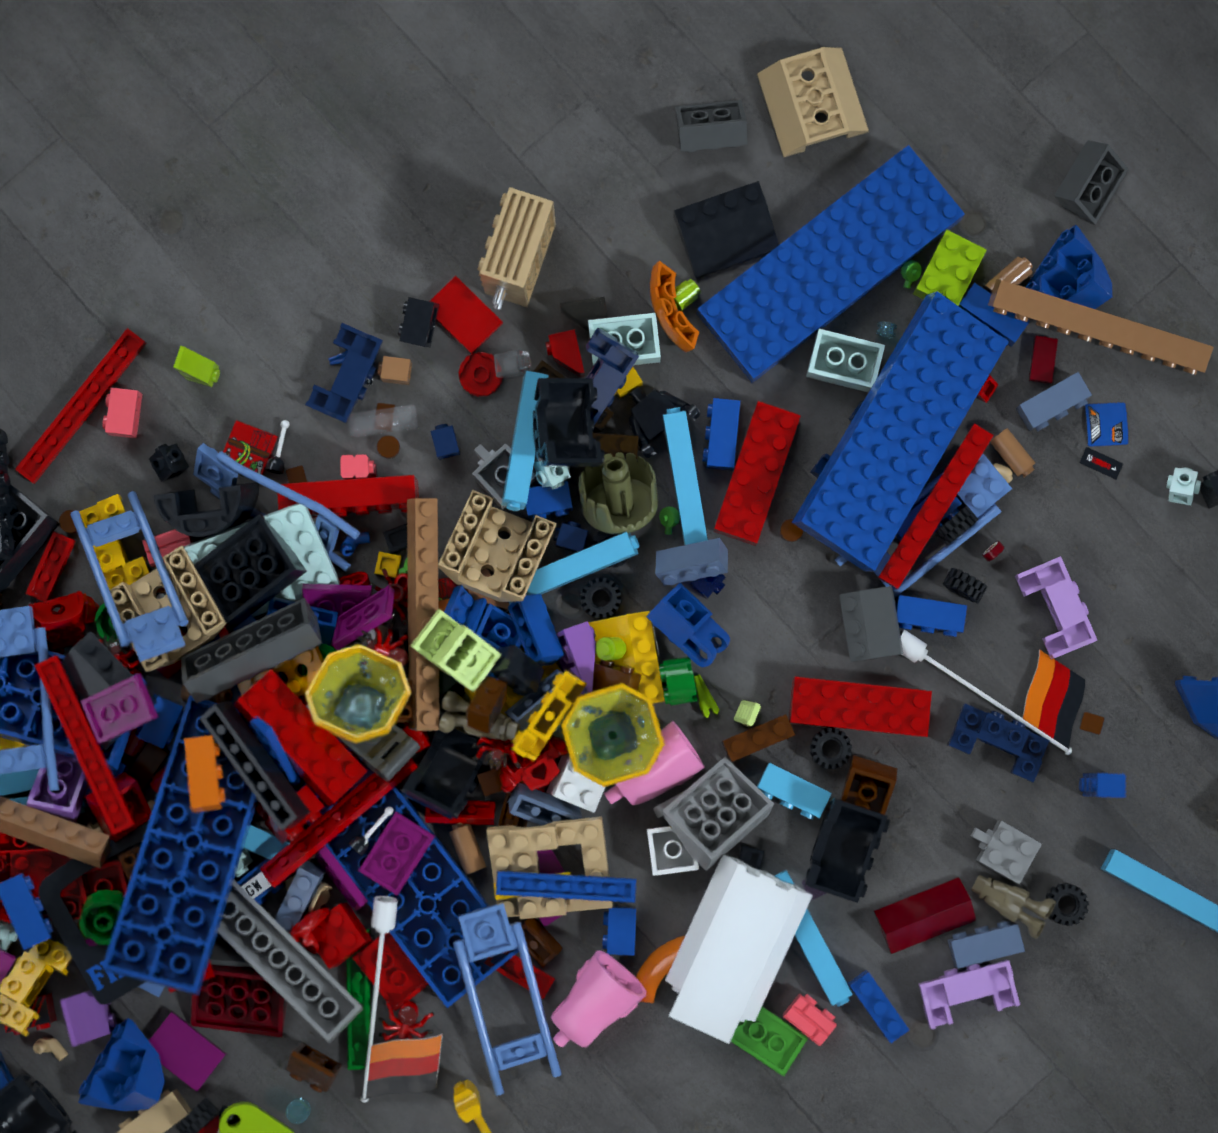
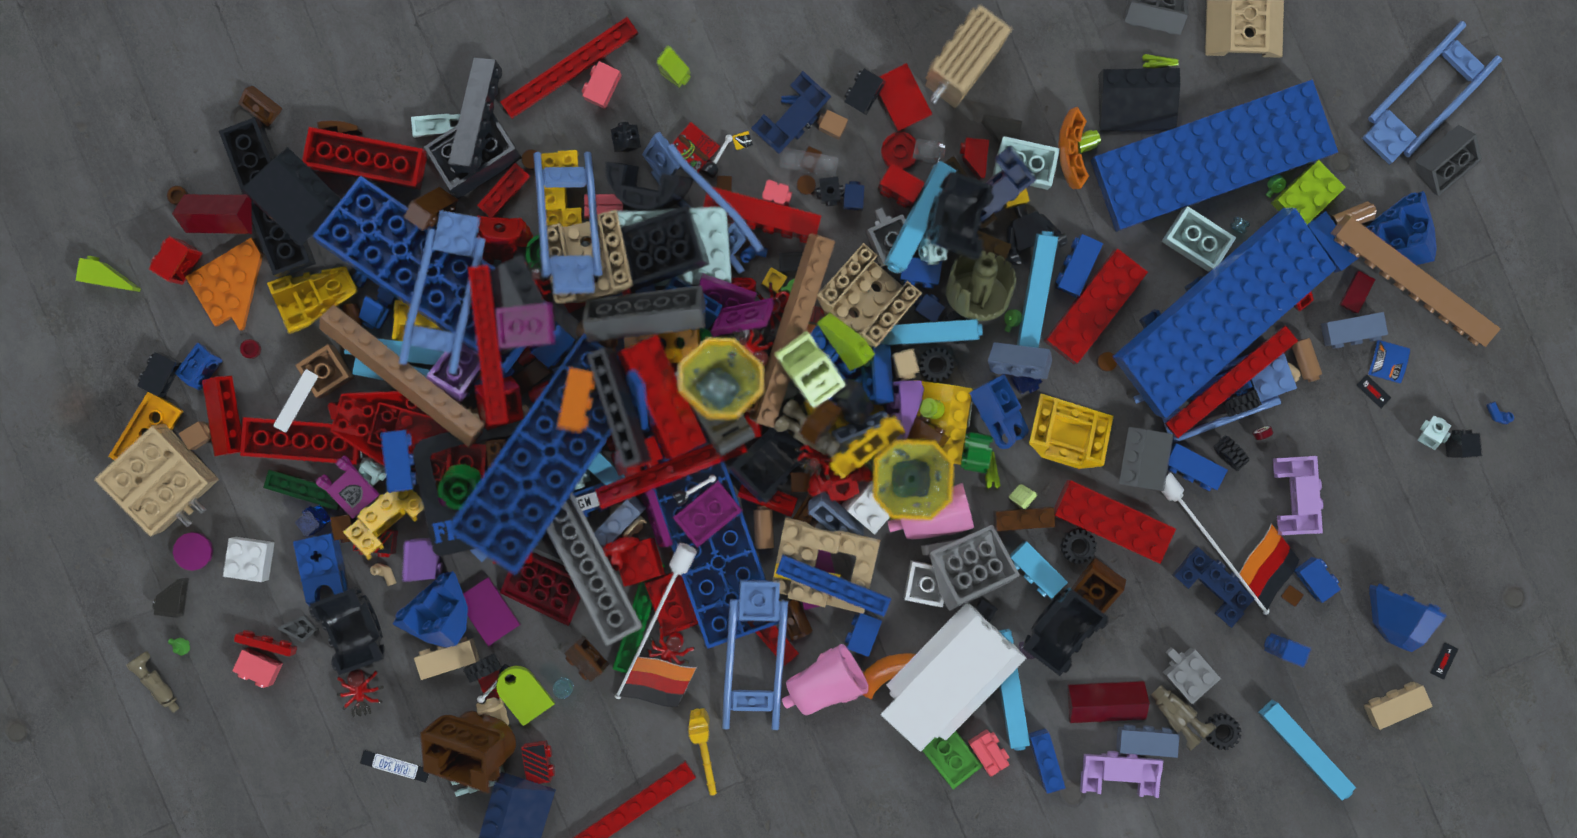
camera: 15 degrees right, 5 degrees up
(301, 421) = (742, 140): none -> sticker
(413, 437) = (832, 184): none -> black brick
(489, 606) = (847, 343): none -> lime slope
(492, 413) = (900, 186): none -> red brick
(563, 609) = (904, 365): none -> tan brick
(734, 181) = (1158, 62): none -> lime piece
(776, 624) = (1070, 433): none -> yellow slope
(1021, 177) = (1391, 136): none -> medium blue plate
(1112, 694) = (1317, 579): none -> blue brick

